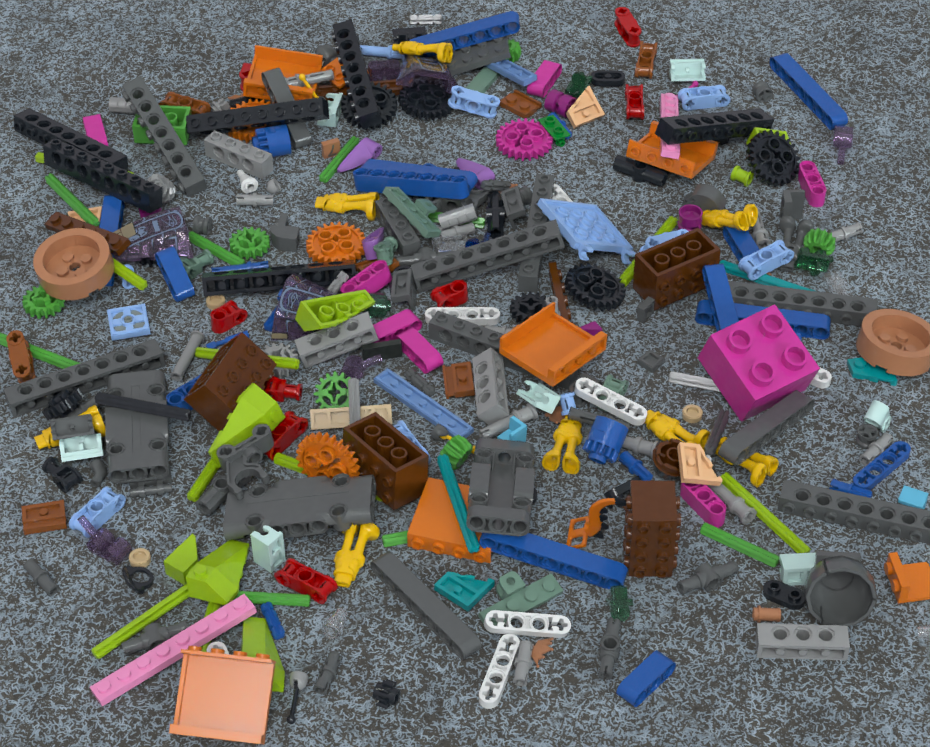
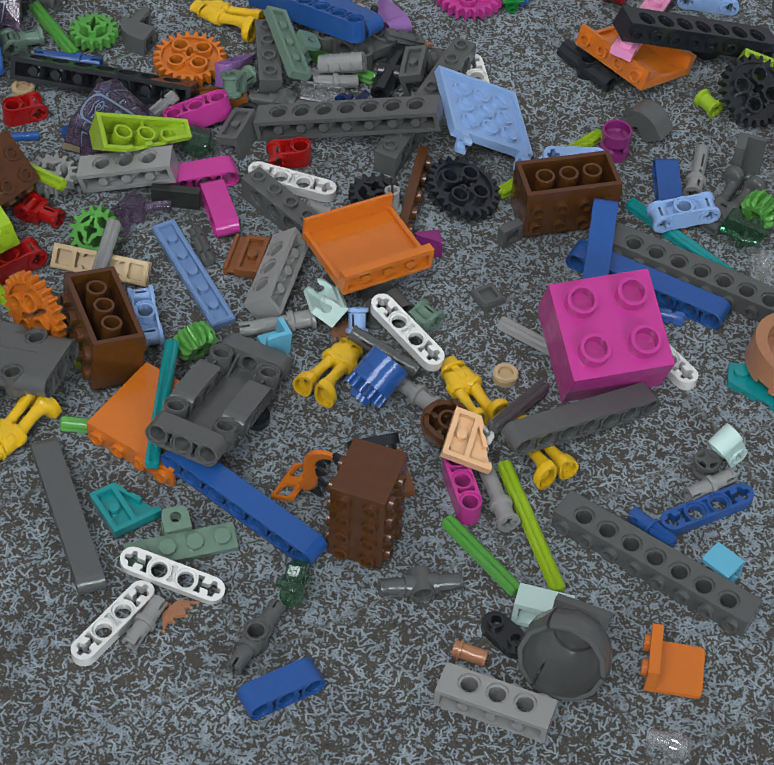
camera: 15 degrees right, 5 degrees up
(440, 434) = (193, 312): dark grey hinge -> none
(635, 466) = (402, 420): blue axle -> none
(740, 220) = (667, 153): yellow piece -> none

